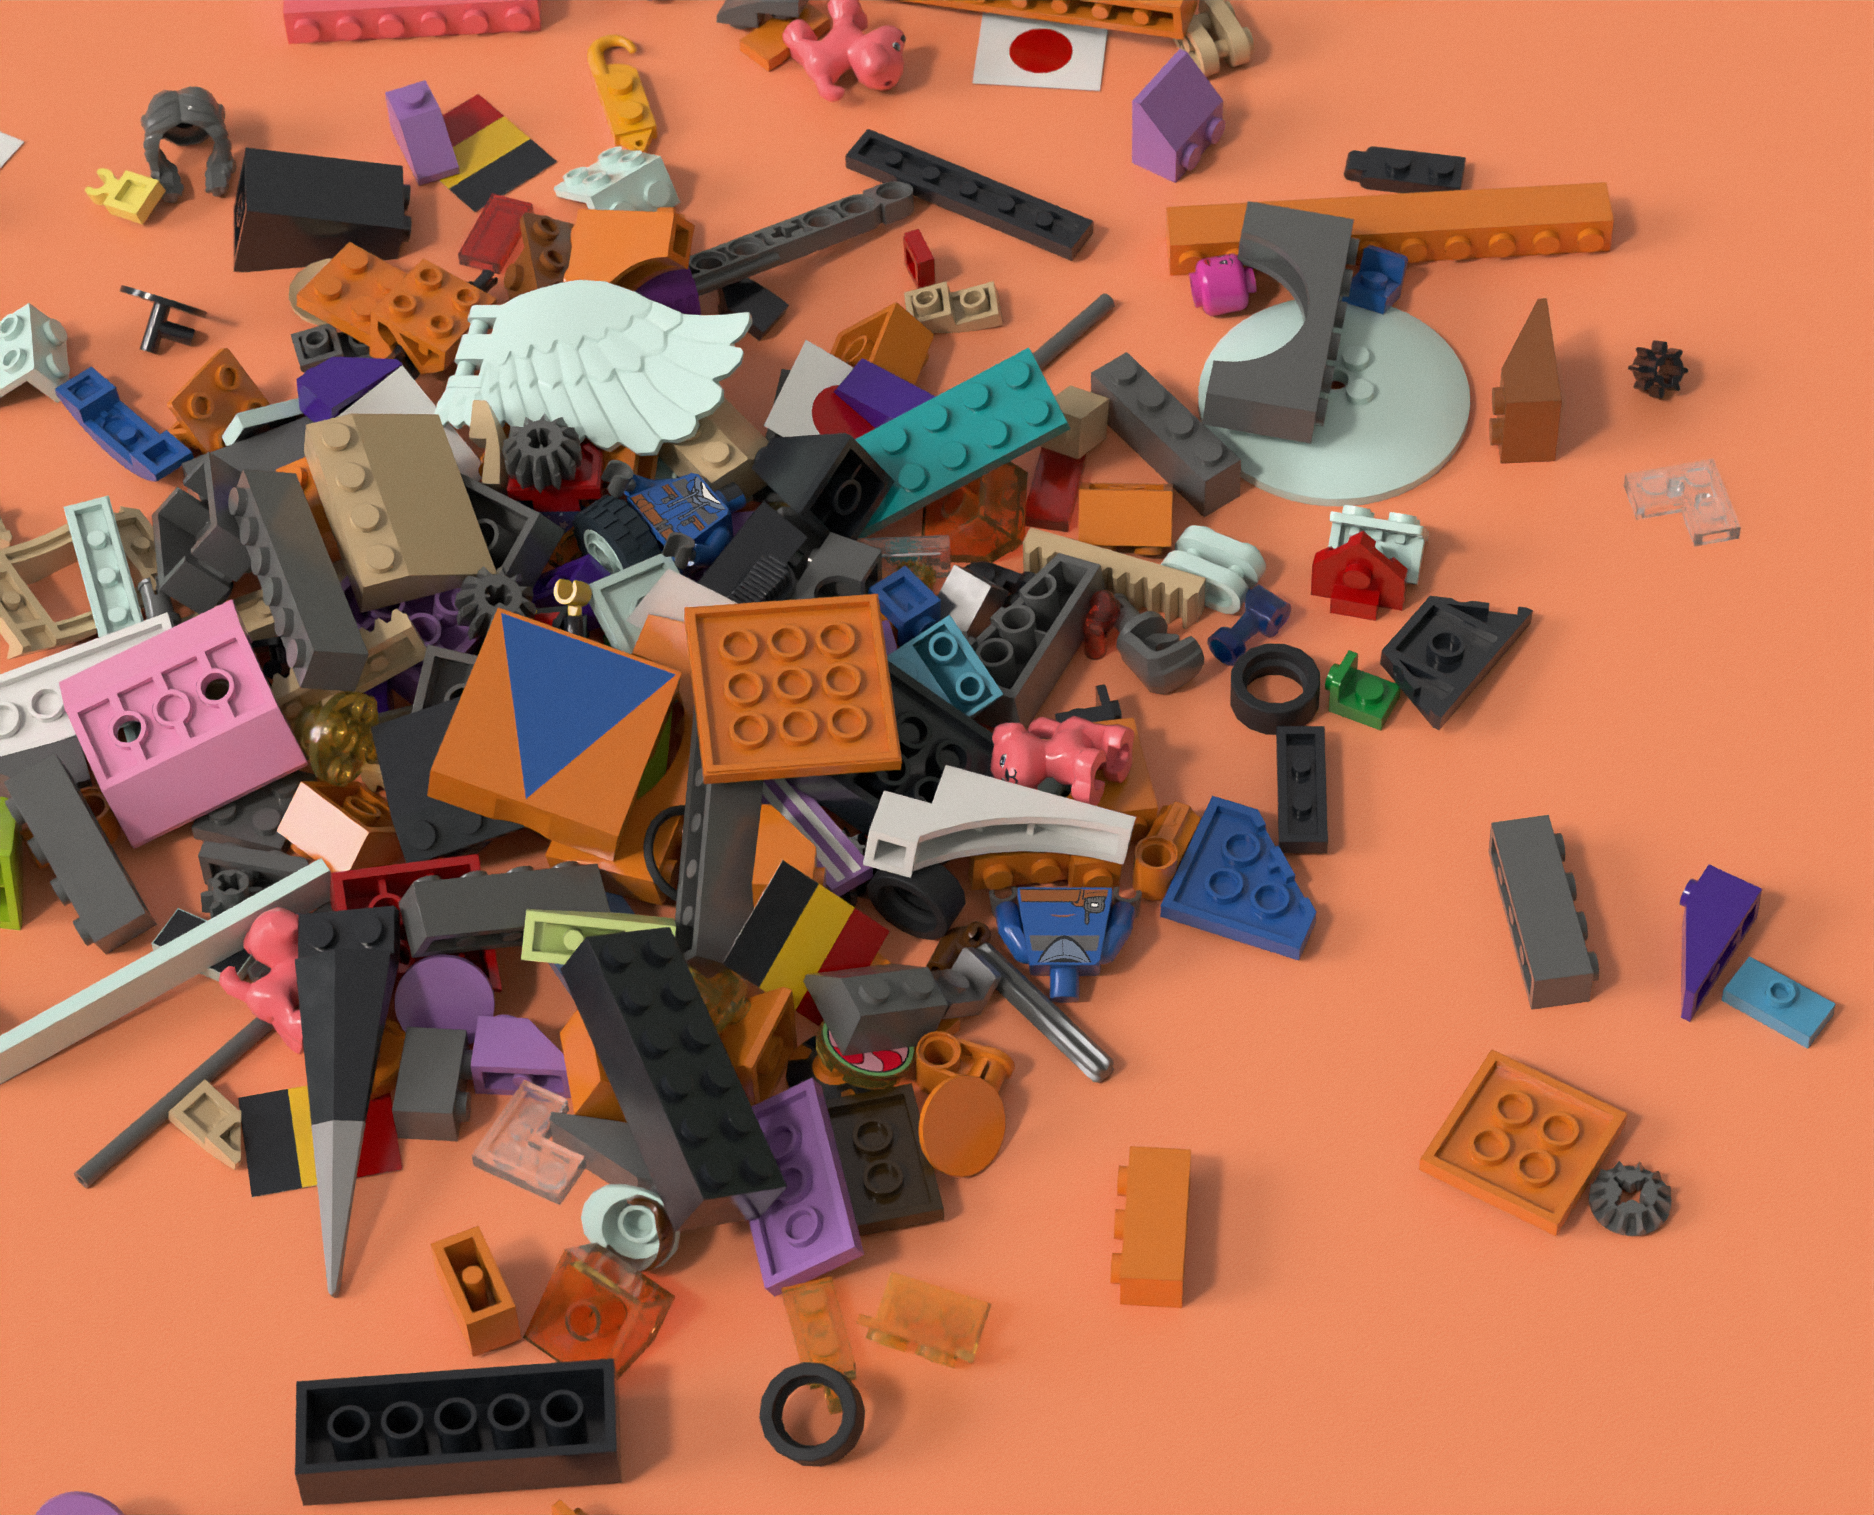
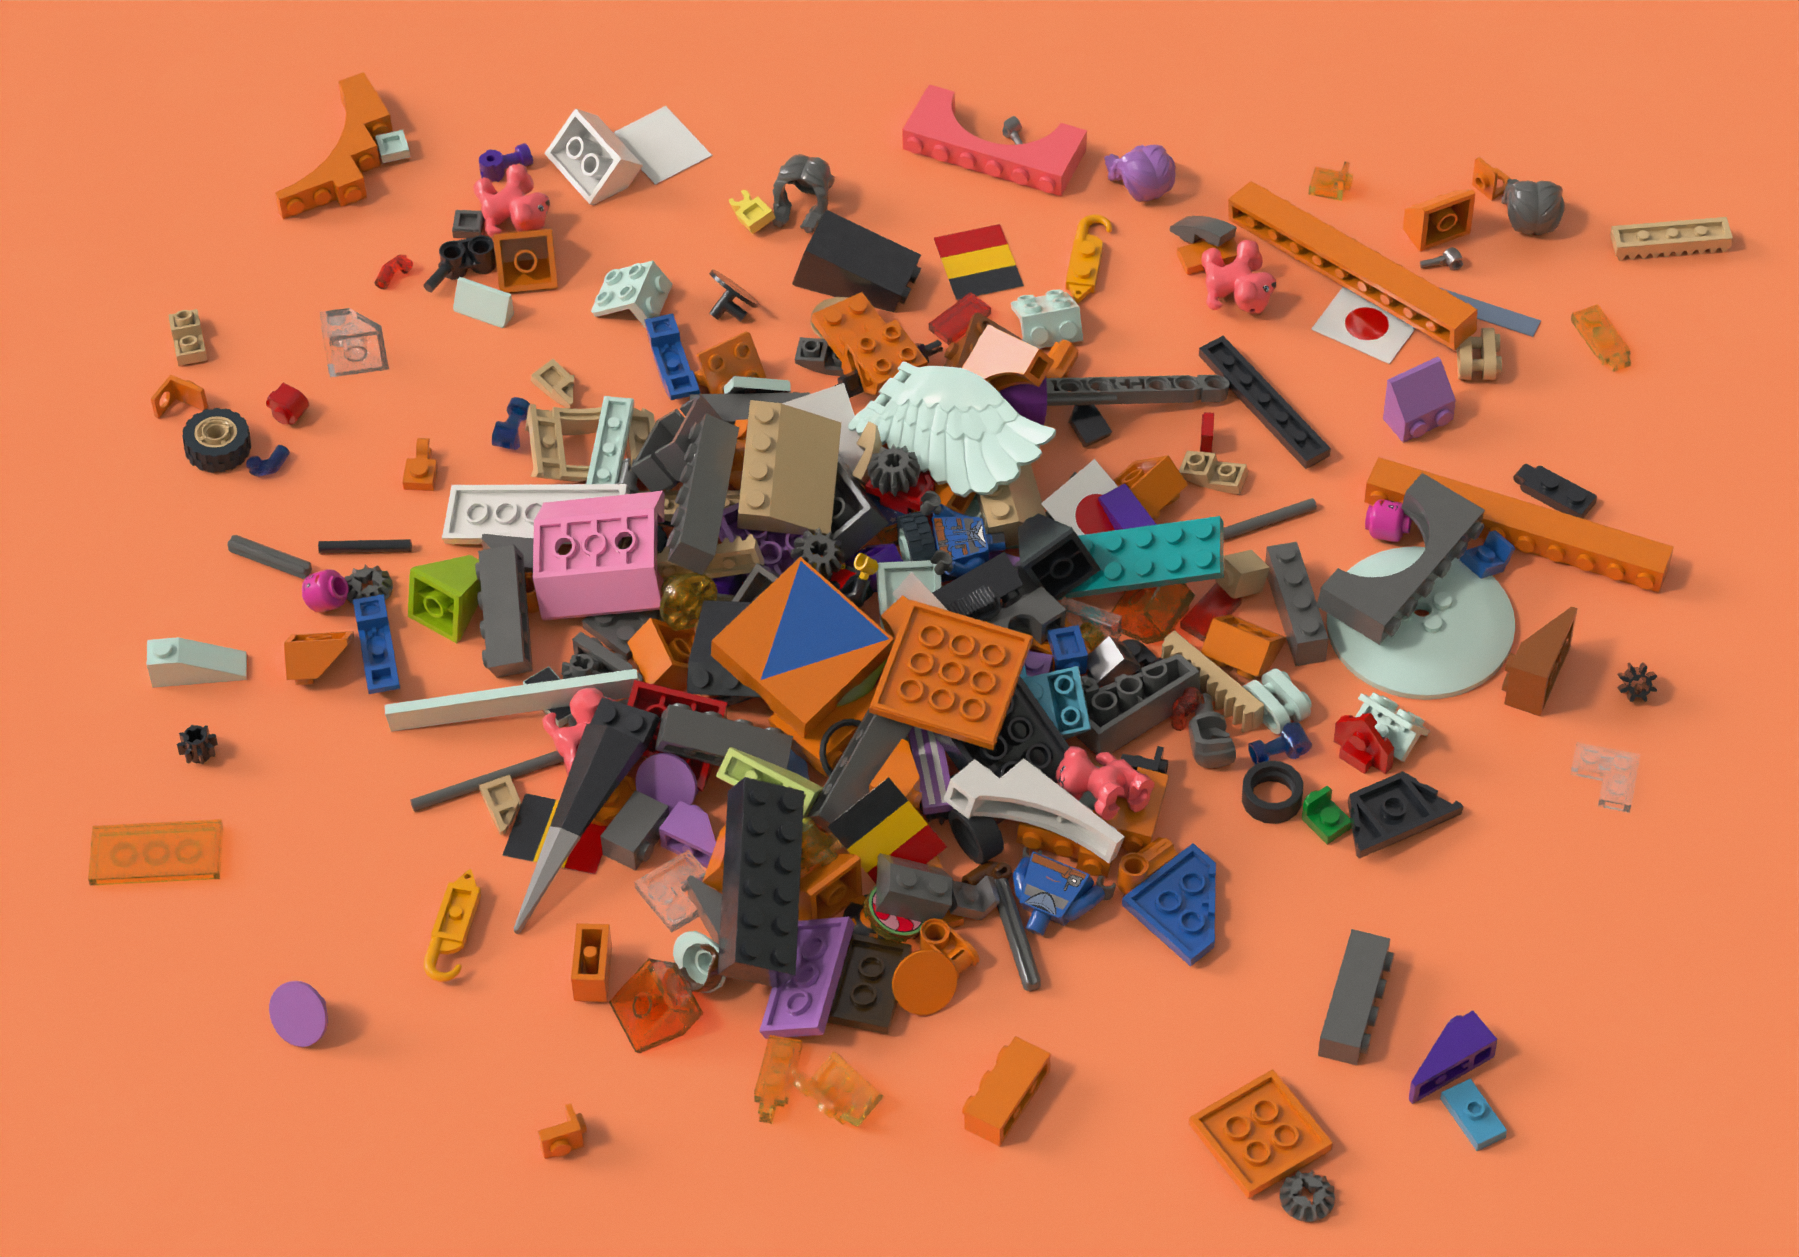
camera: 25 degrees right, 0 degrees up
(237, 1323) = (452, 924): none -> light orange plate
(339, 383) = (803, 379): dark purple slope -> none
(421, 132) = (947, 237): medium lavender slope -> none
(457, 1432) = (538, 1040): black brick -> none
(776, 1397) = (721, 1104): black tyre -> none
(1301, 789) = (1252, 861): black plate -> none

